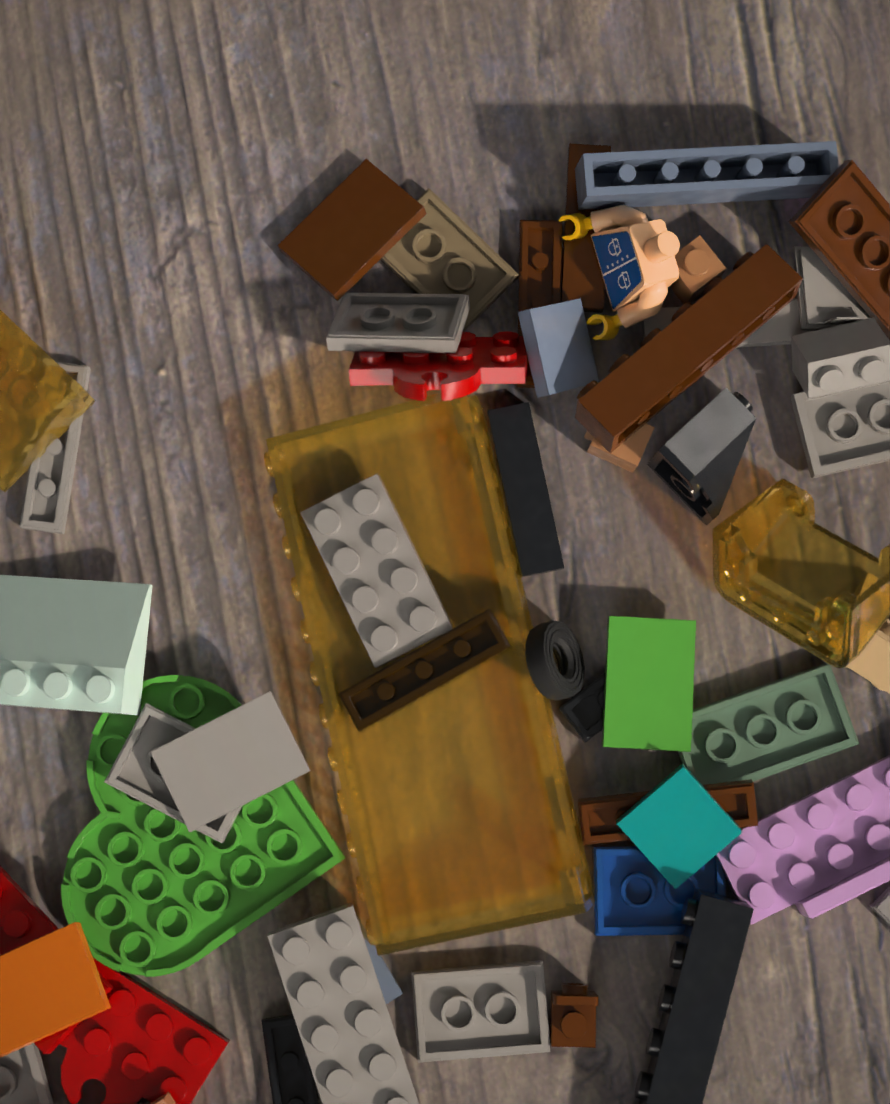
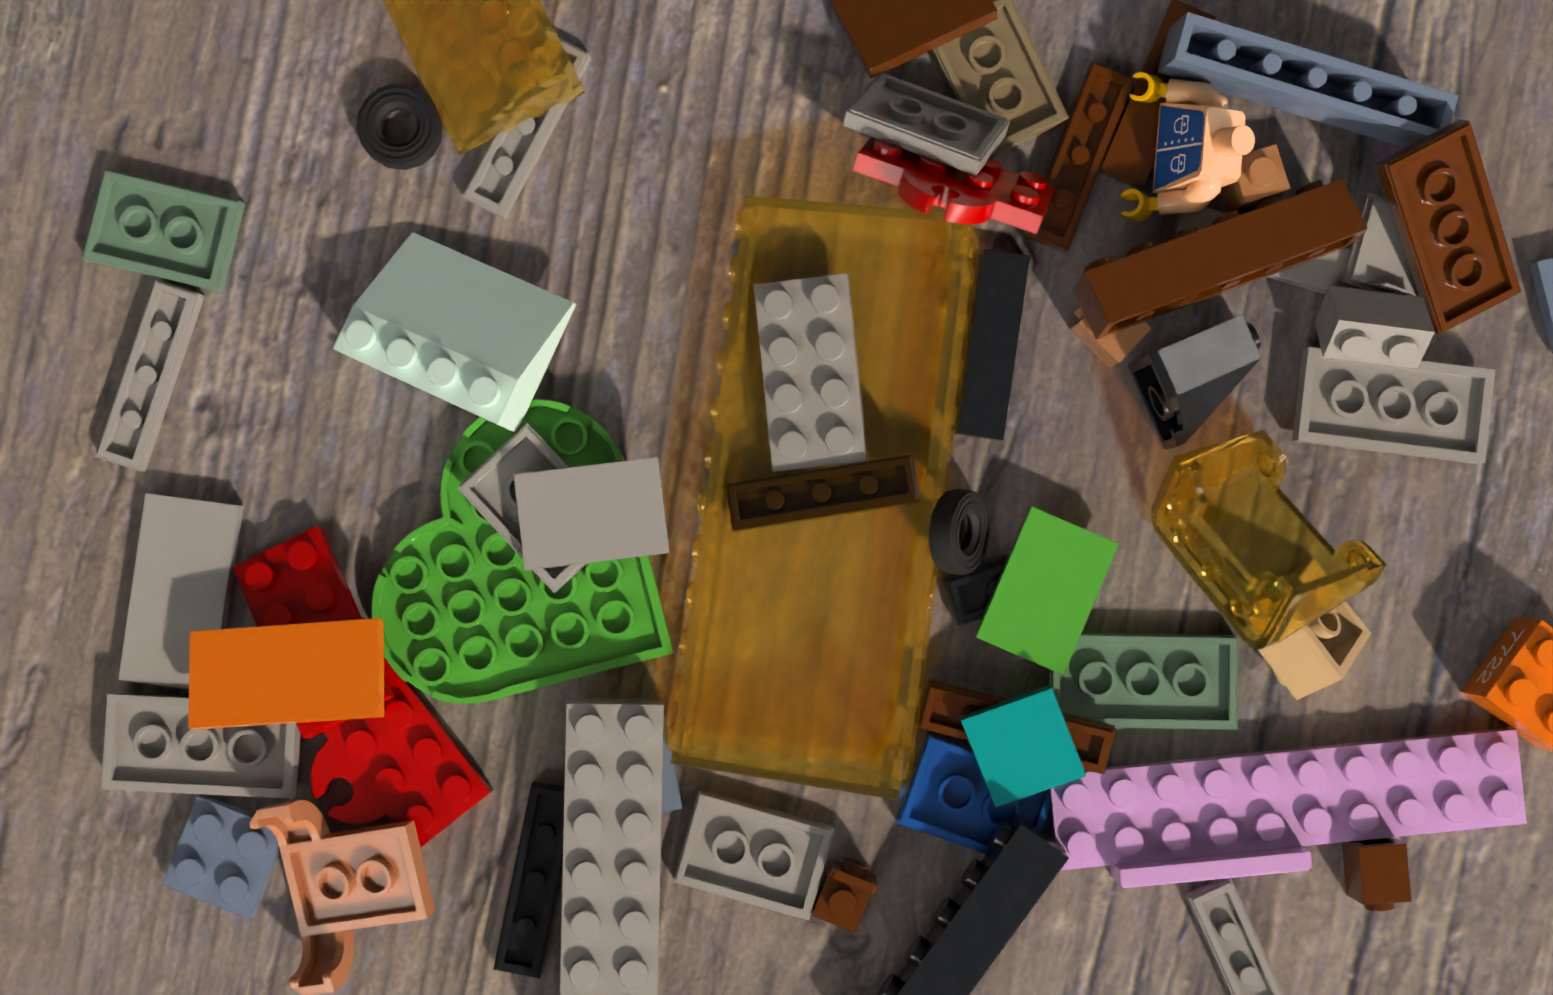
camera: 20 degrees right, 5 degrees up
(558, 347) = (1083, 208): sand blue tile -> none

